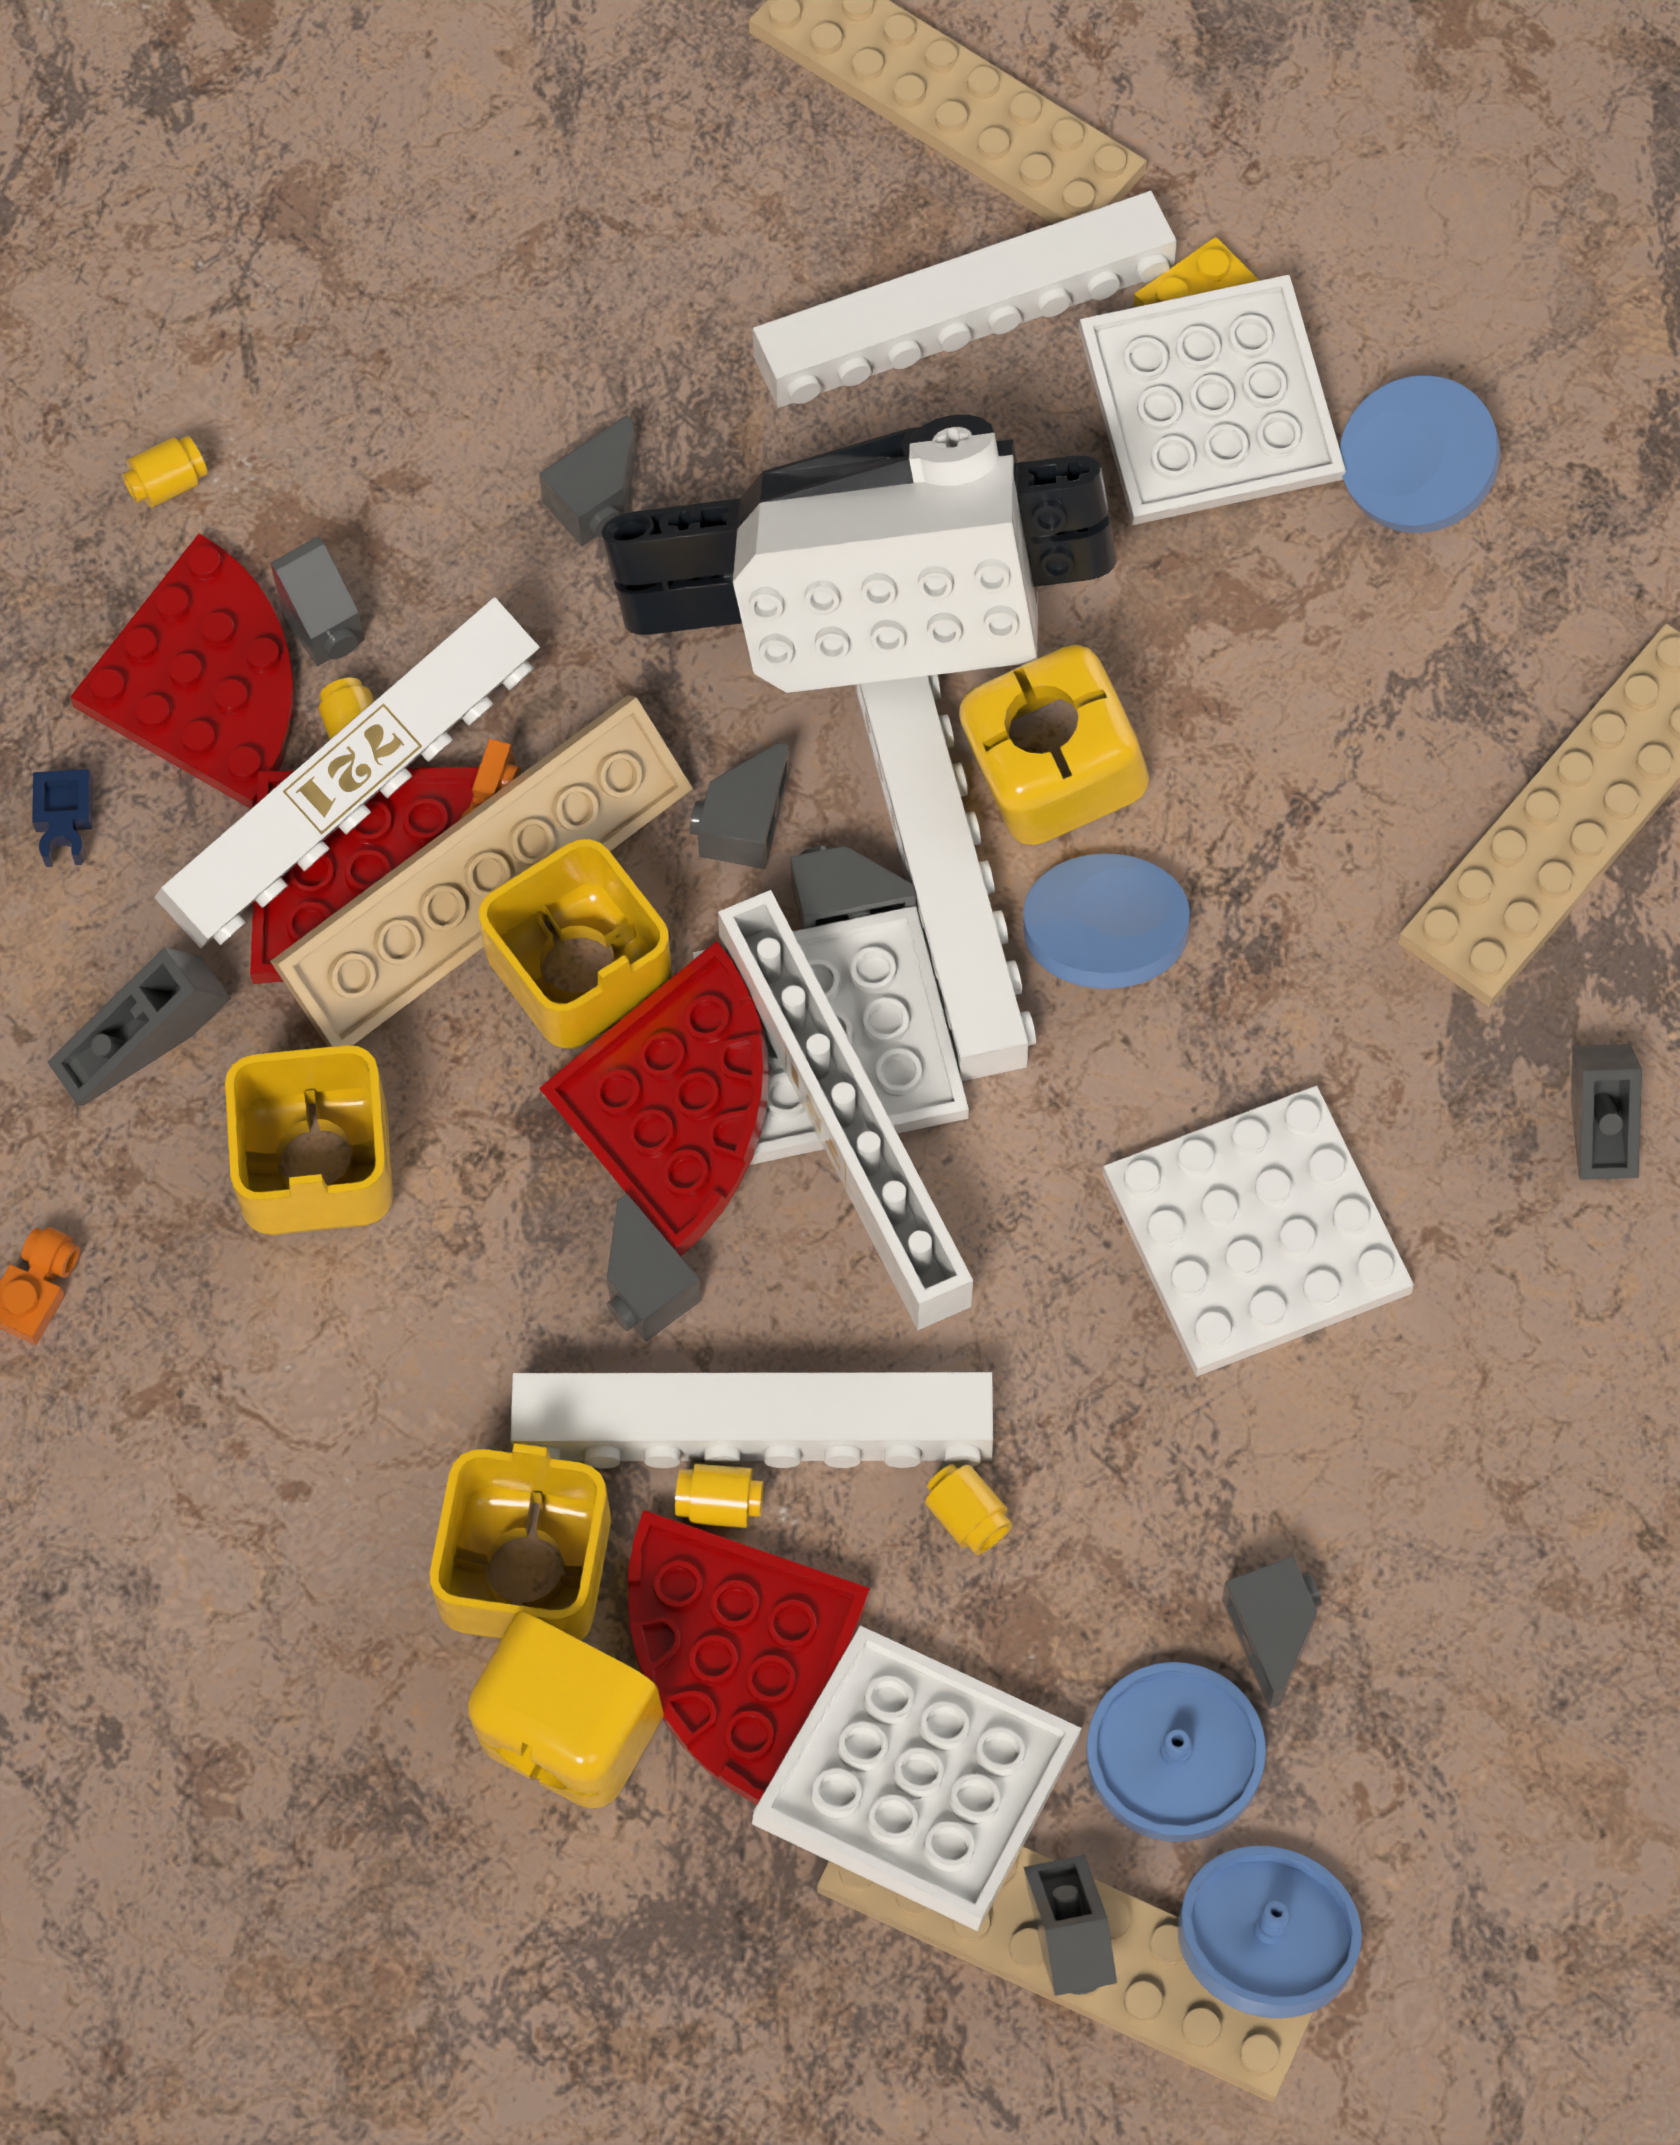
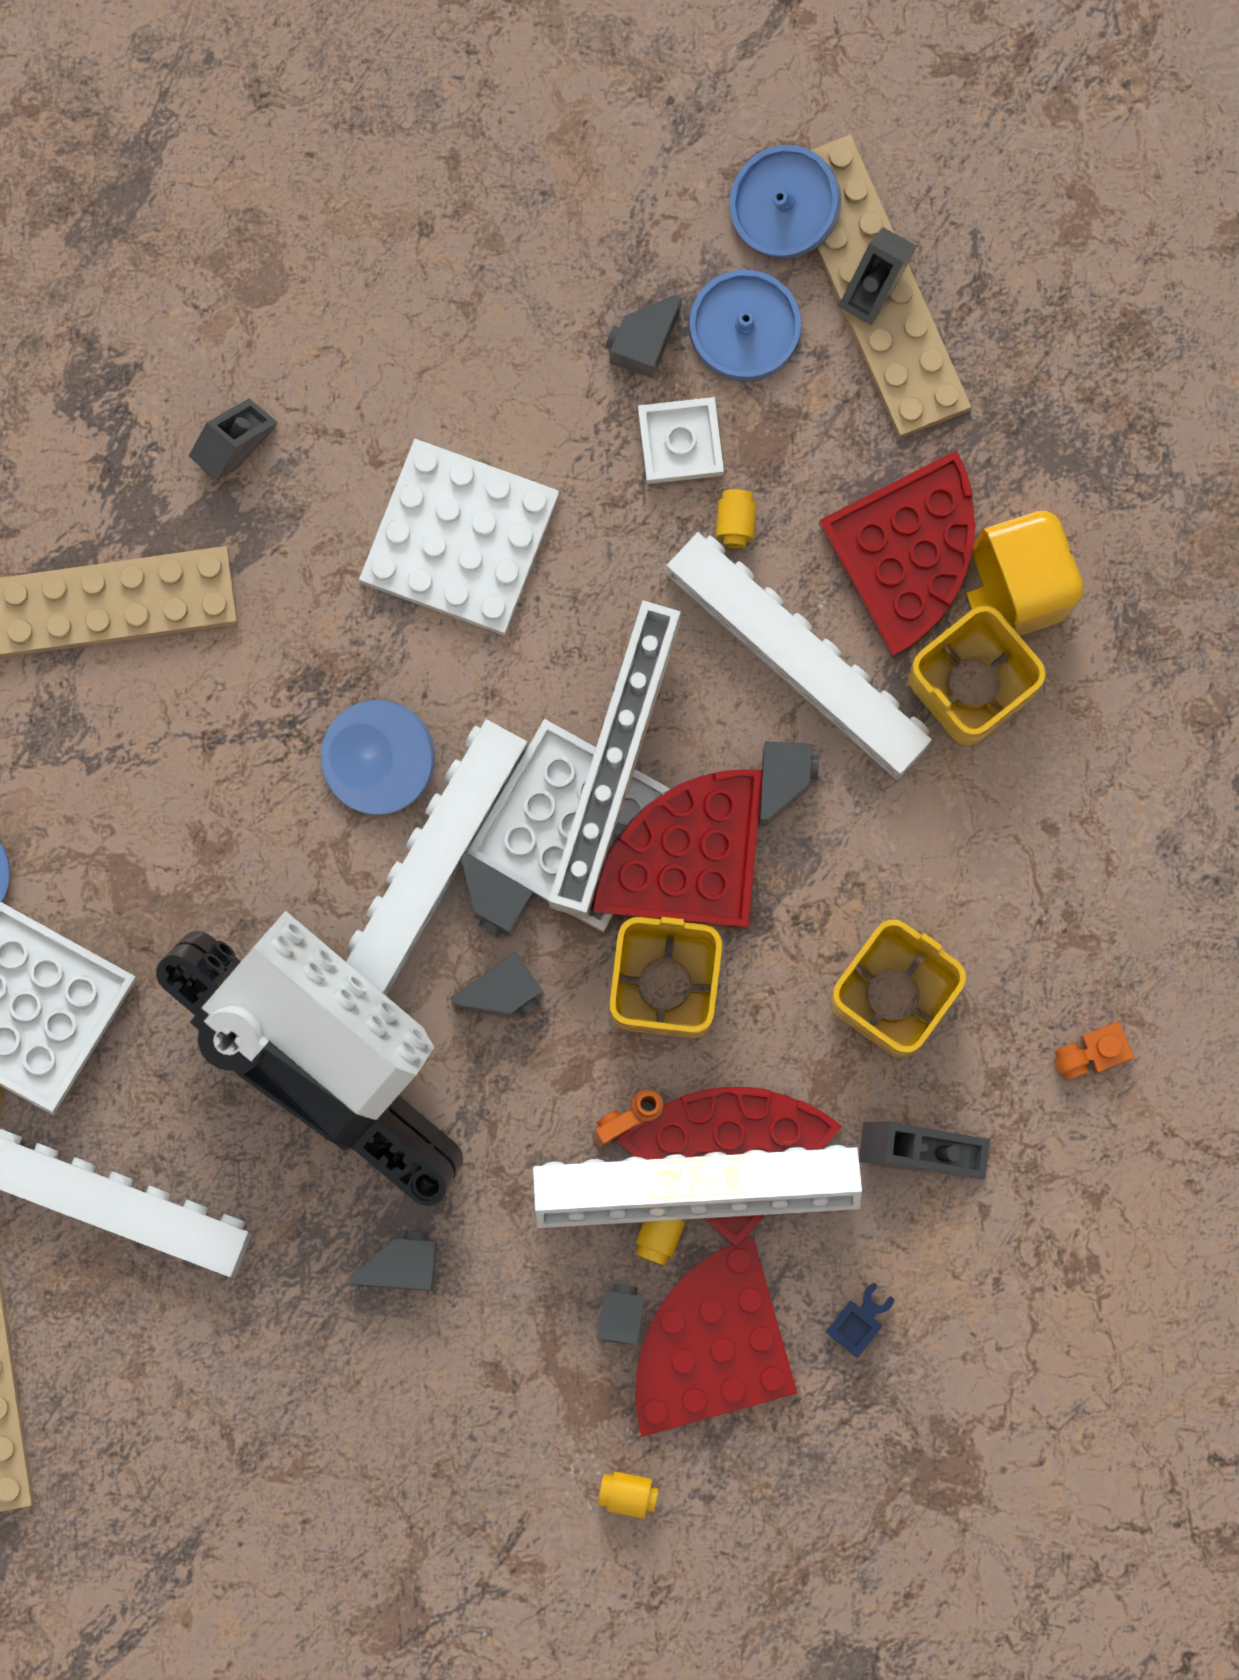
camera: 140 degrees left, 15 degrees up
(426, 910) = (673, 1070): tan plate -> none
(718, 1495) = (849, 631): yellow brick -> none
(917, 1777) = (883, 406): white plate -> none
(1100, 754) = (274, 880): yellow piece -> none
(1117, 1544) = (680, 440): none -> white plate

